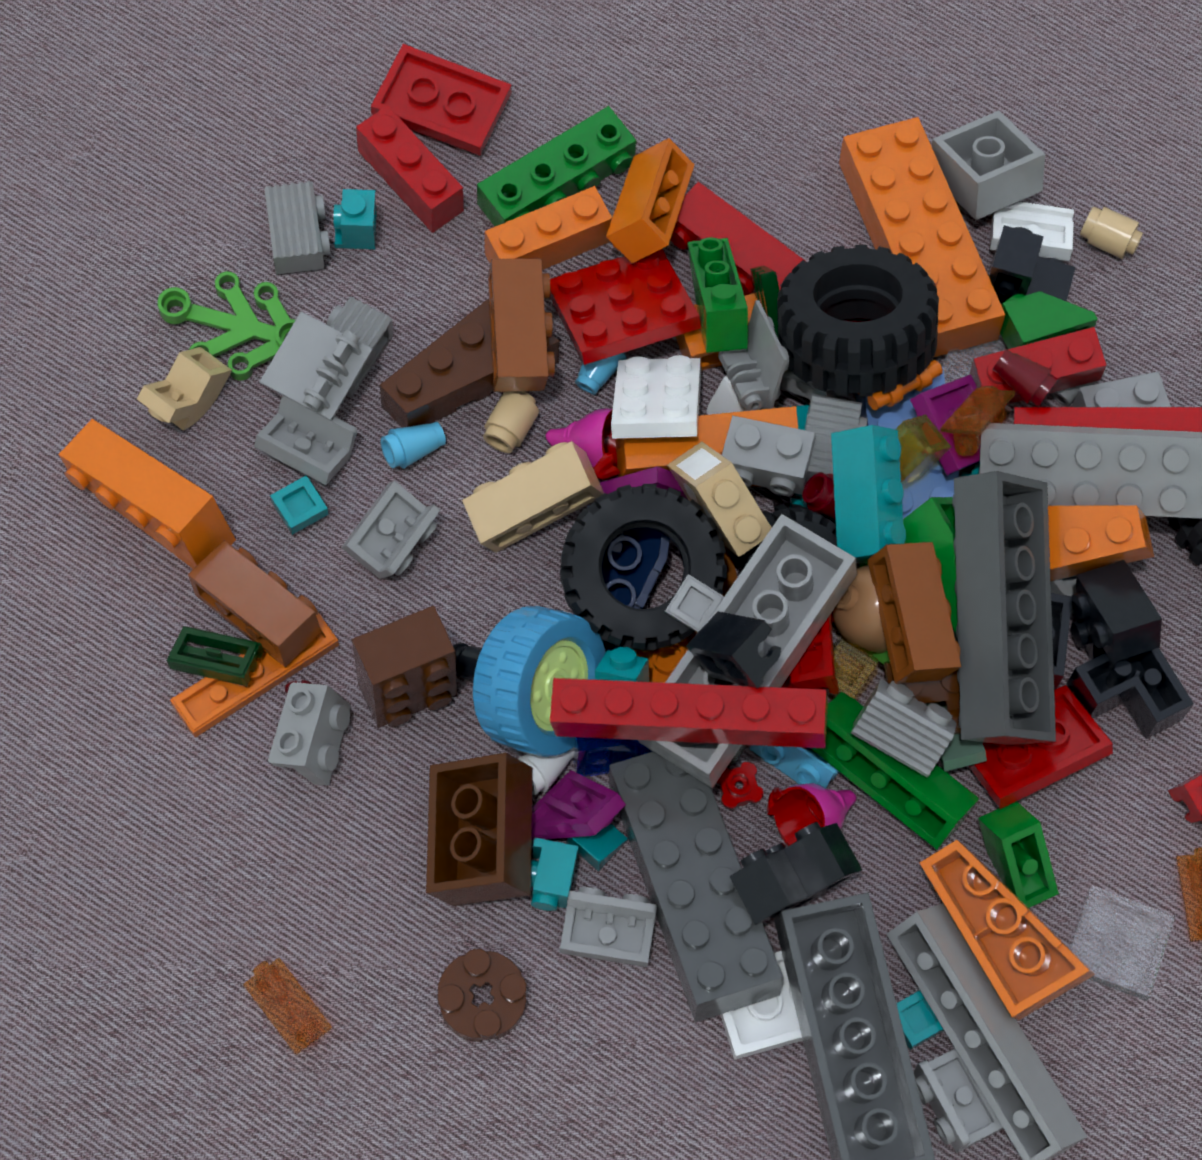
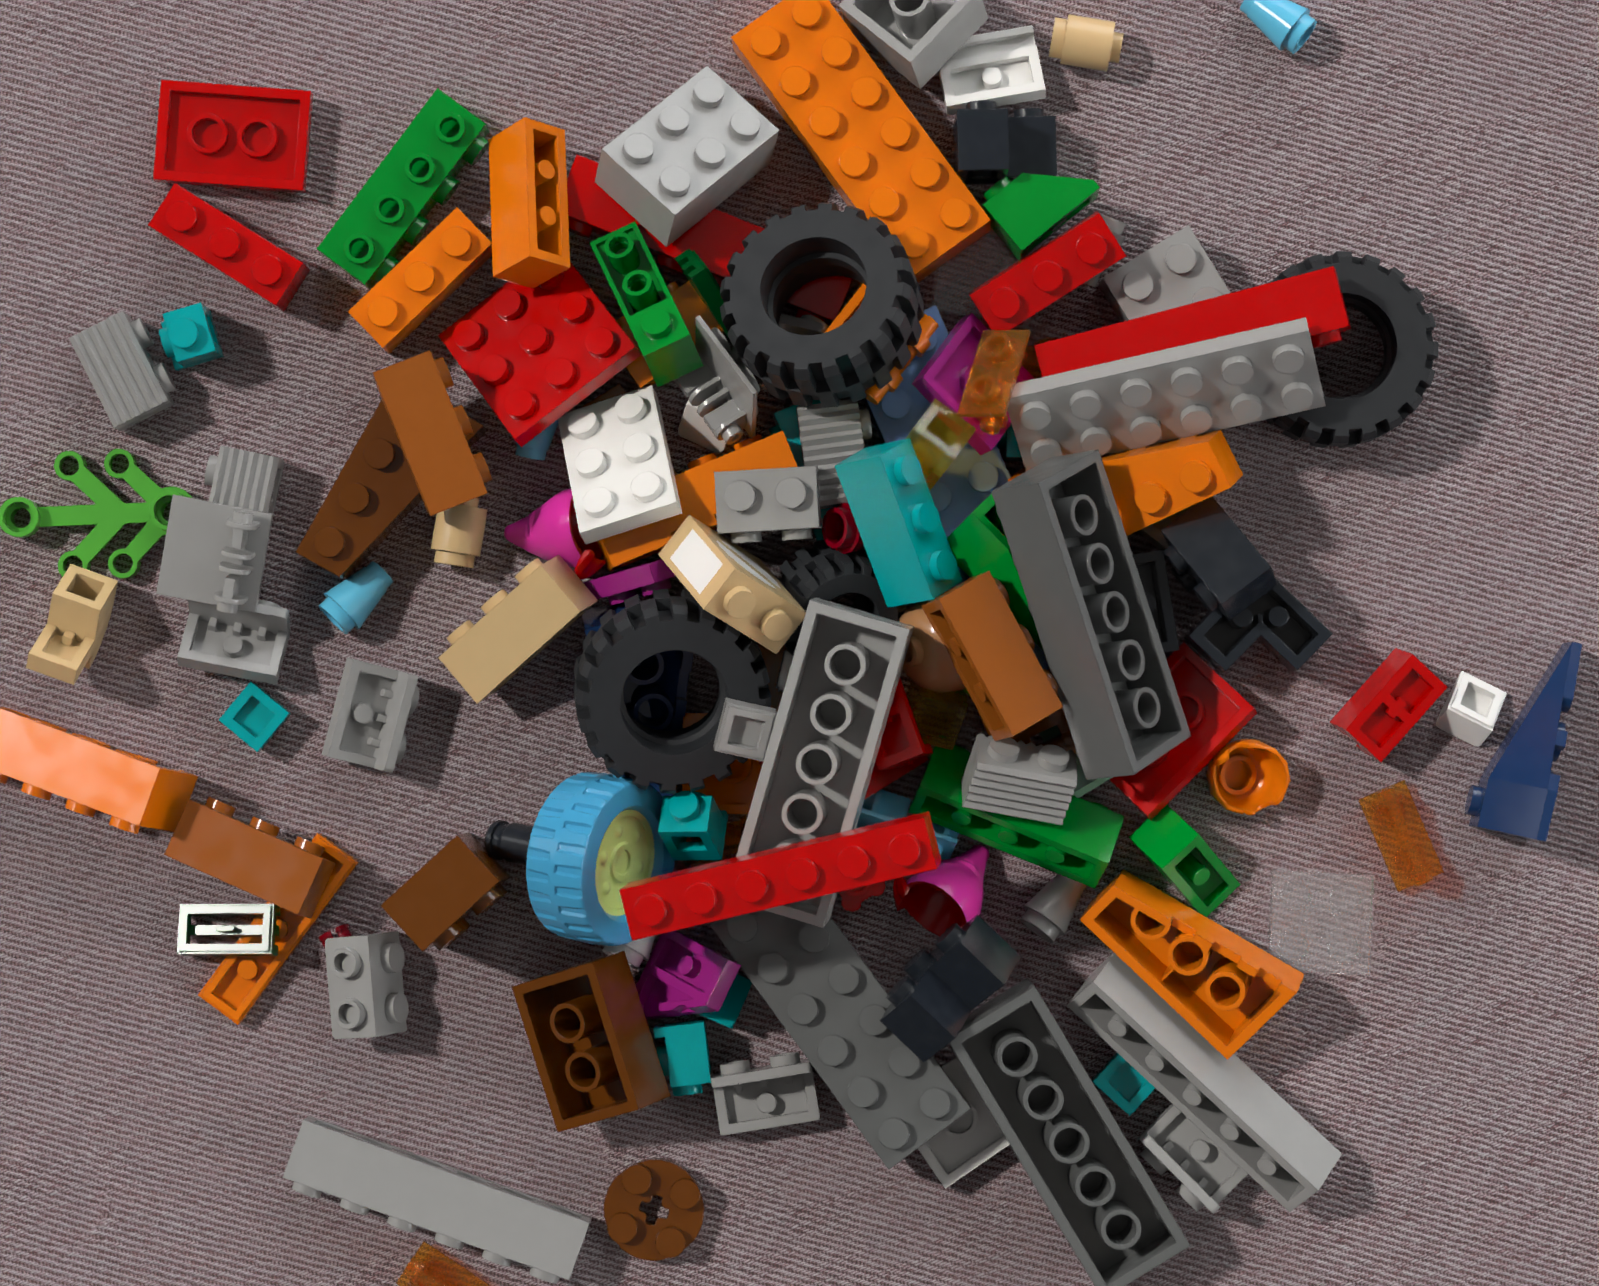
camera: 15 degrees left, 20 degrees up
(305, 923) = (437, 1198): none -> light grey brick
(730, 649) = (807, 795): black hinge -> none
(782, 203) = (686, 156): none -> light grey brick
(896, 857) = (1052, 908): none -> light grey cone
(1025, 377) = (1037, 310): dark red cone -> none
(1091, 802) = (1248, 776): none -> orange hair

